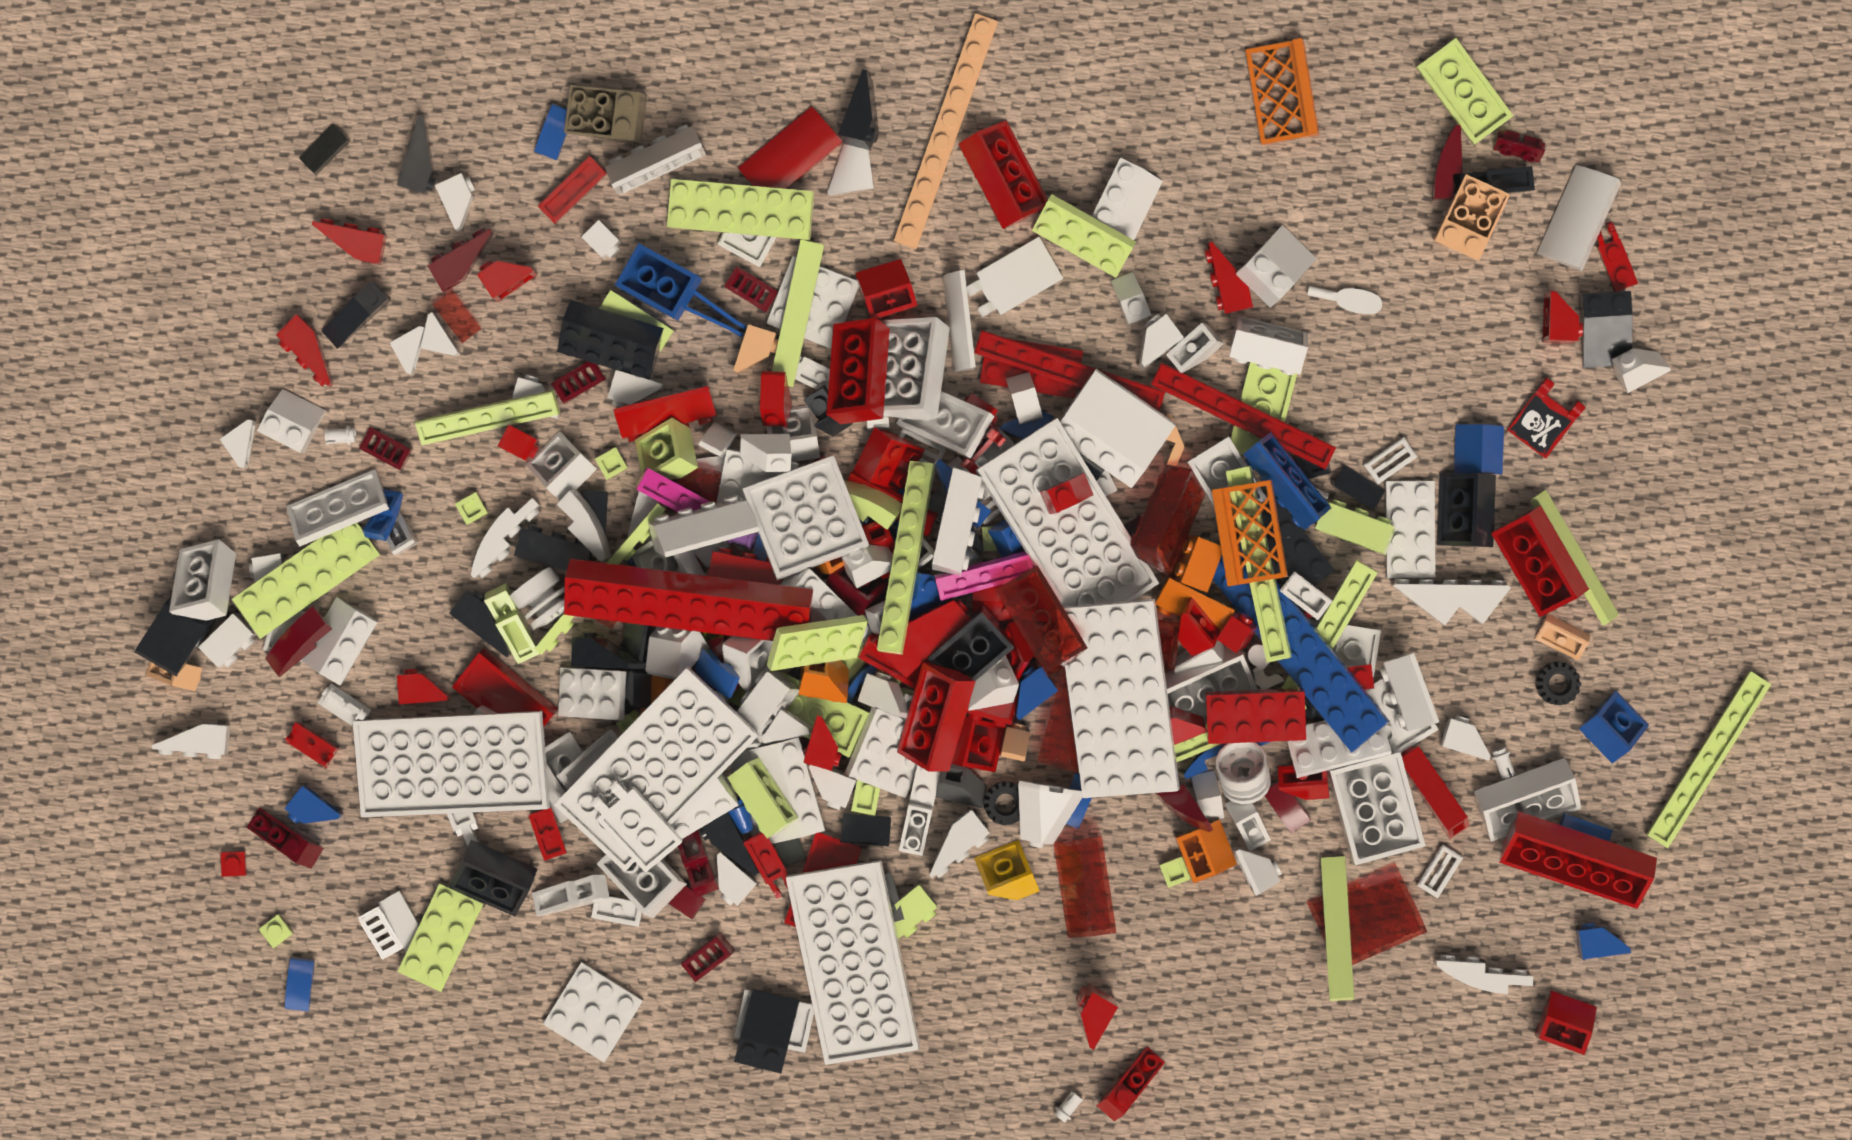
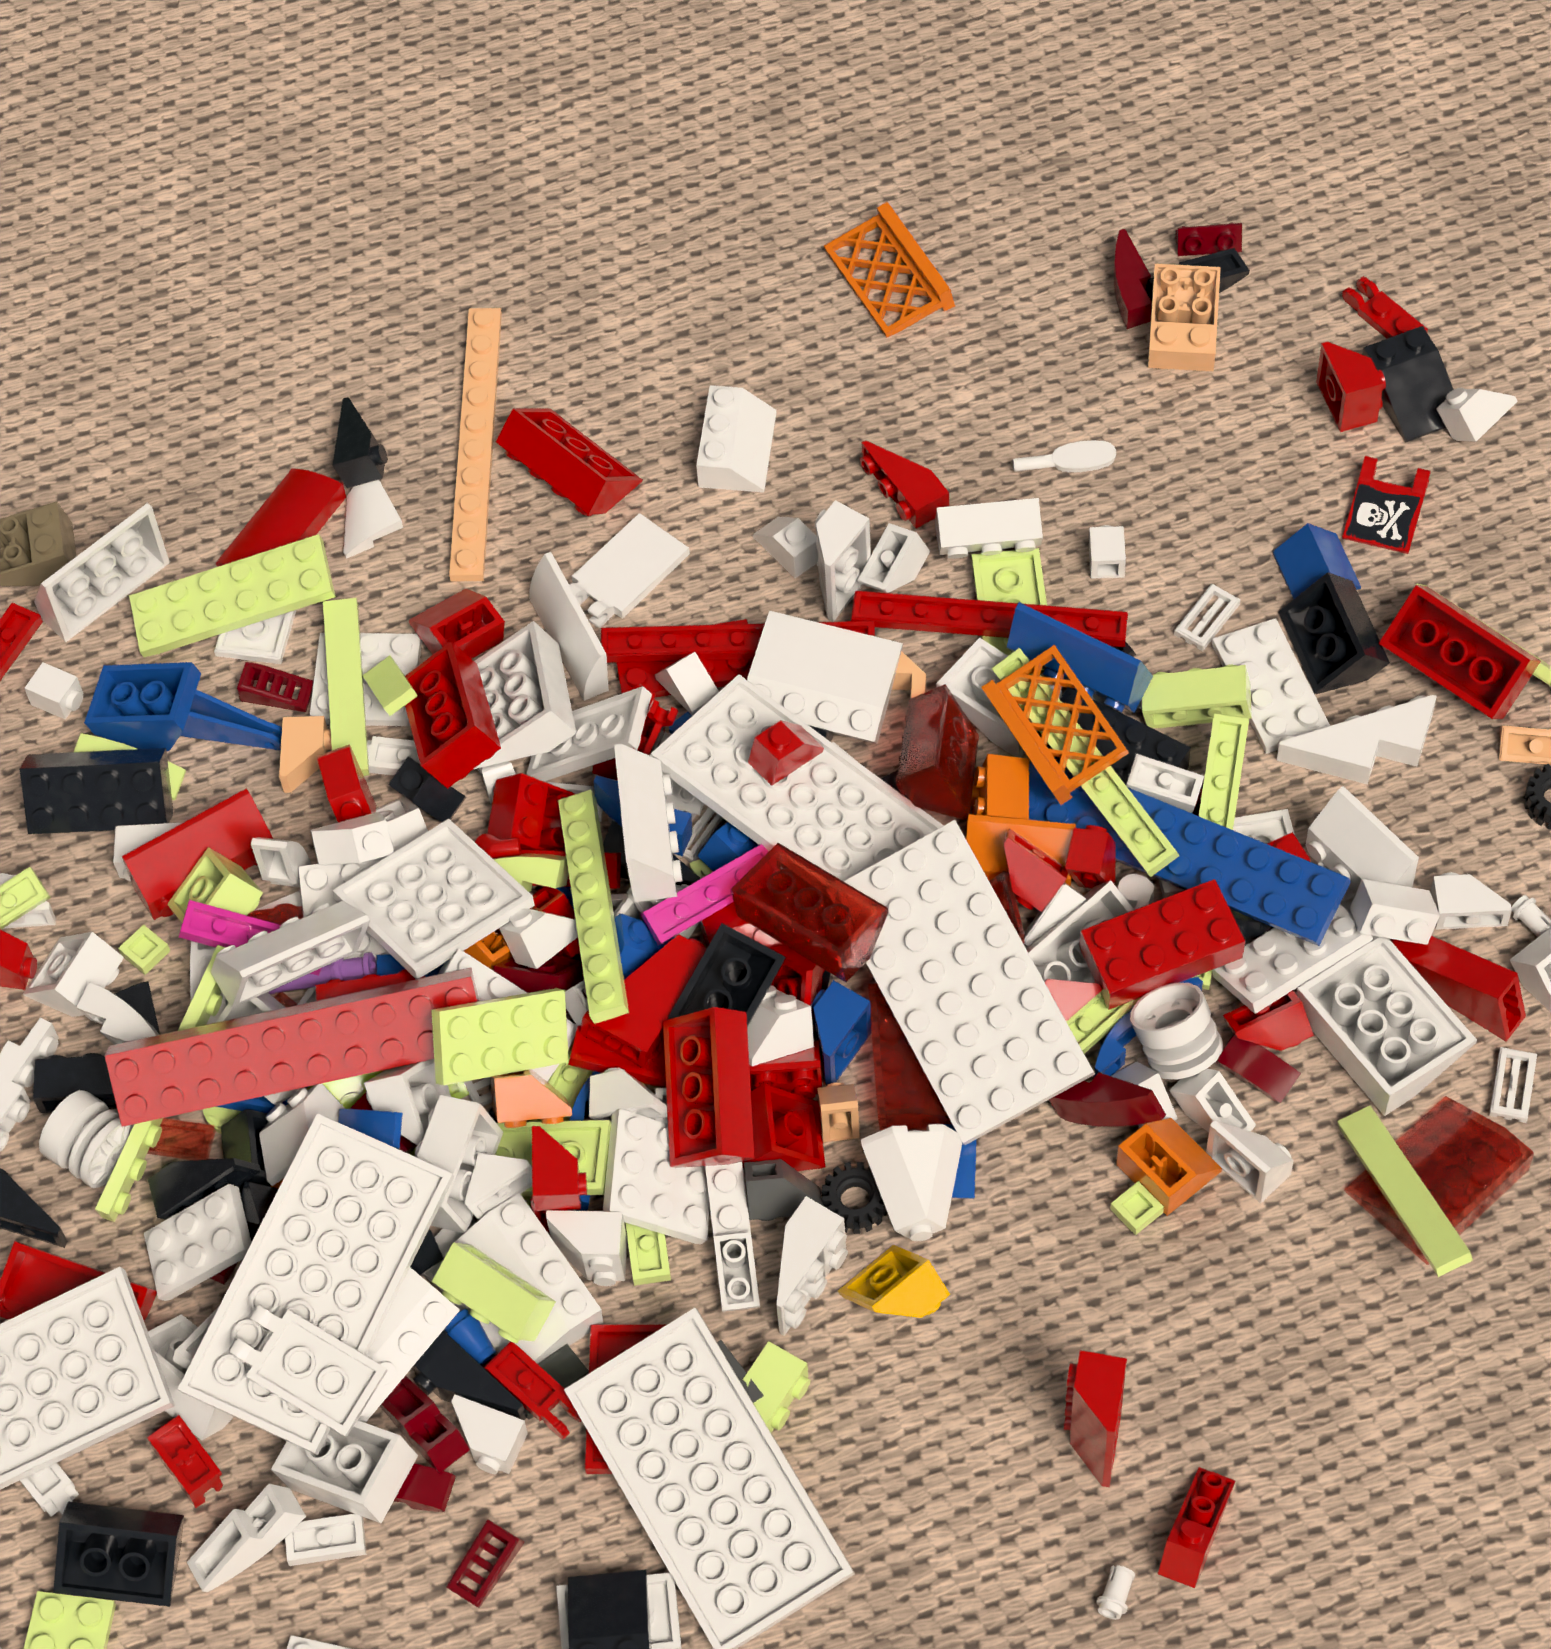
camera: 25 degrees left, 30 degrees down
(511, 623) = (55, 1196): yellowish green slope -> none
(574, 394) = (68, 883): dark red slope -> none
(826, 329) = (390, 685): none -> yellowish green tile
(857, 484) = (499, 848): none -> red arm
(865, 829) = (663, 1298): black slope -> none
(1083, 235) = (696, 486): yellowish green plate -> none
(1084, 887) = (1016, 1269): clear red slope -> none
(1276, 266) = (956, 445): white slope -> none
(1343, 387) = (1107, 552): none -> white brick
(1358, 488) = (1173, 658): black slope -> none
(1410, 746) = (1394, 911): none -> white brick
(1464, 91) = (1114, 203): yellowish green plate -> none
(1579, 217) = (1319, 282): white slope -> none

